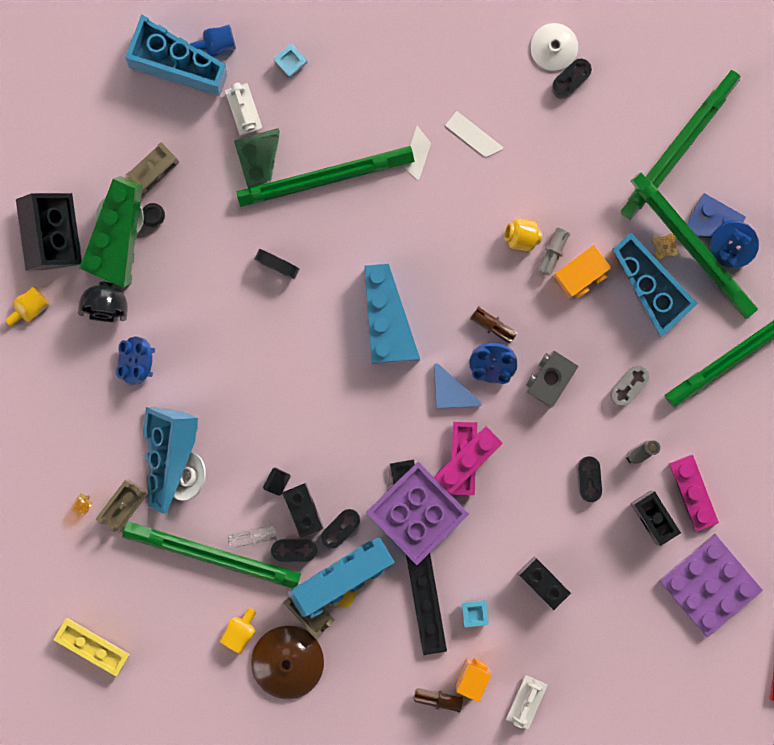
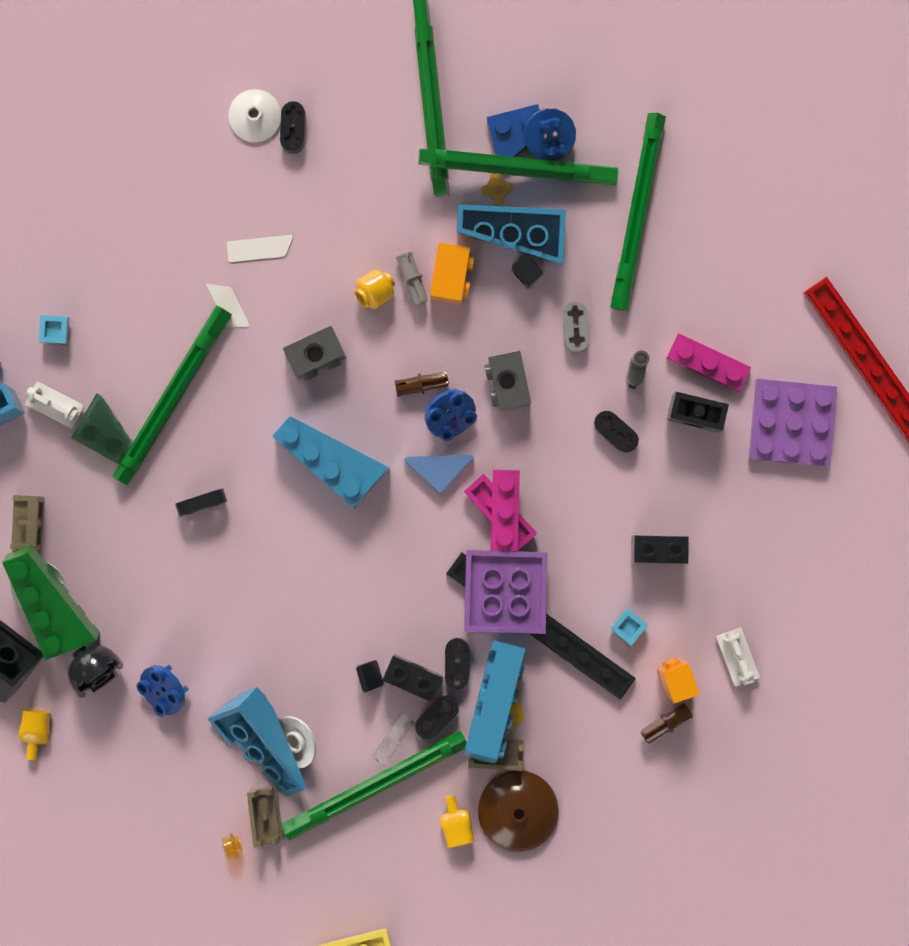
camera: 40 degrees left, 0 degrees up
(153, 215) = (64, 559): black plate -> none
(433, 228) = (298, 353): none -> dark grey brick
(633, 318) = (527, 271): none -> black slope

